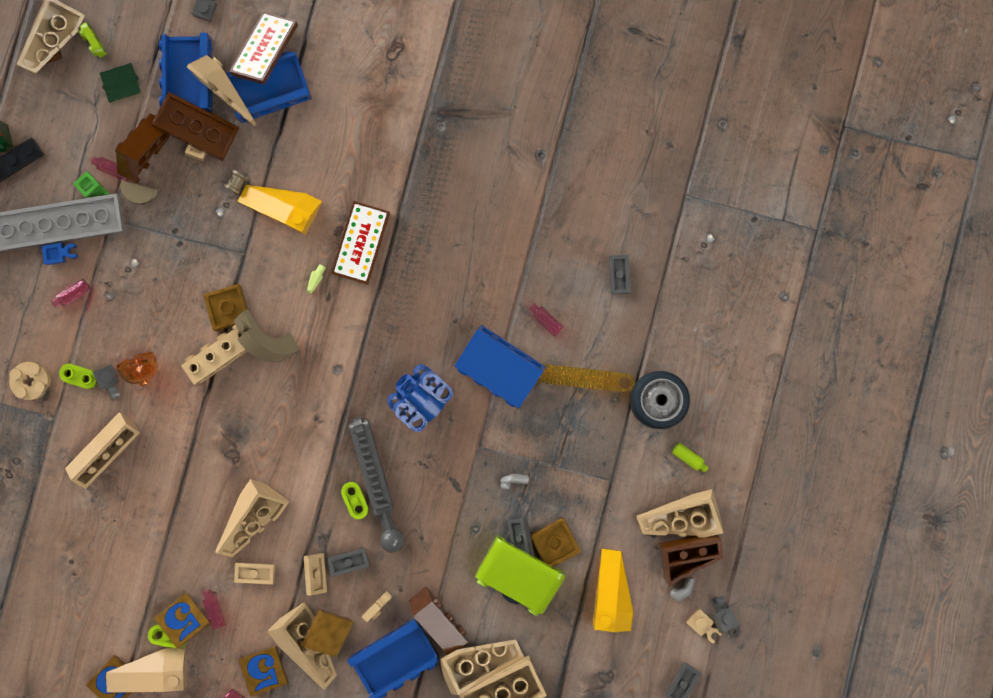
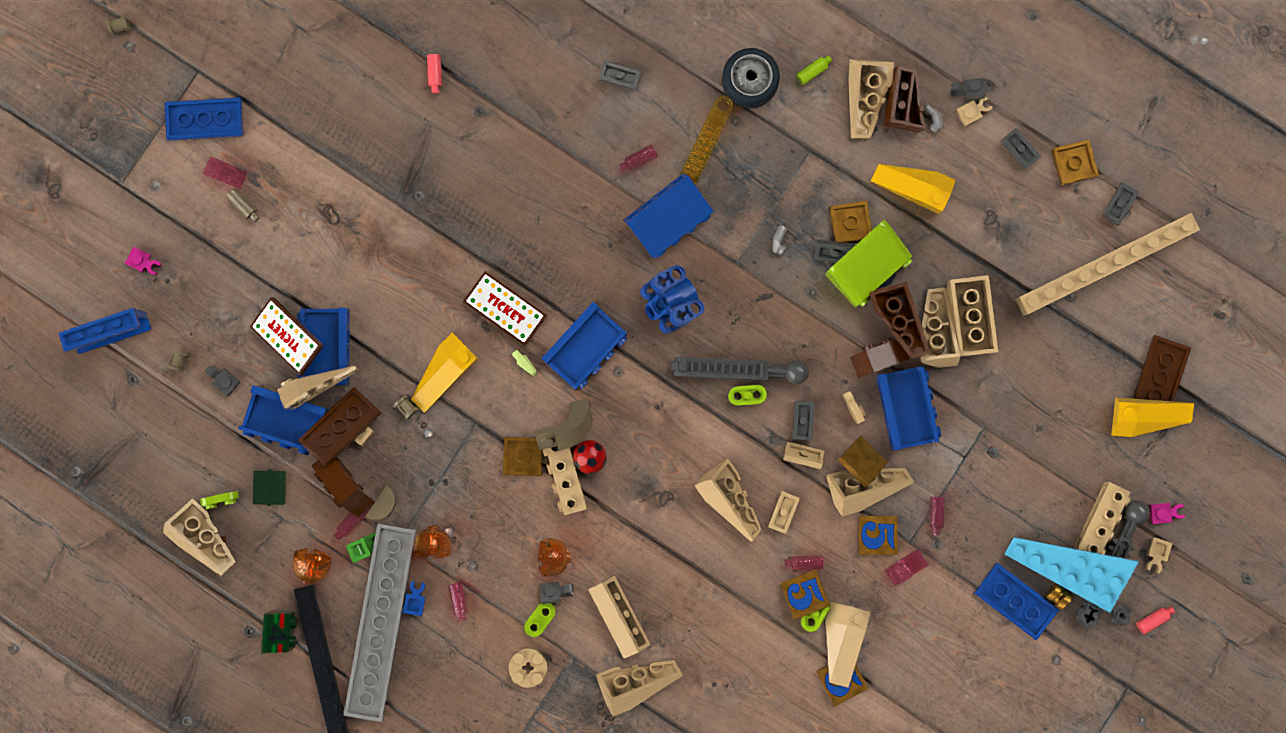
camera: 65 degrees left, 0 degrees up
(43, 485) = (631, 686): none -> tan wedge
(58, 145) = (311, 566): none -> clear orange cylinder
(116, 250) = (432, 542): none -> clear orange cylinder
(244, 370) = (589, 456): none -> red piece
(349, 330) = (585, 346): none -> blue panel
(478, 622) = (899, 314): none -> reddish brown wedge
(561, 100) = (434, 72): none -> coral cylinder

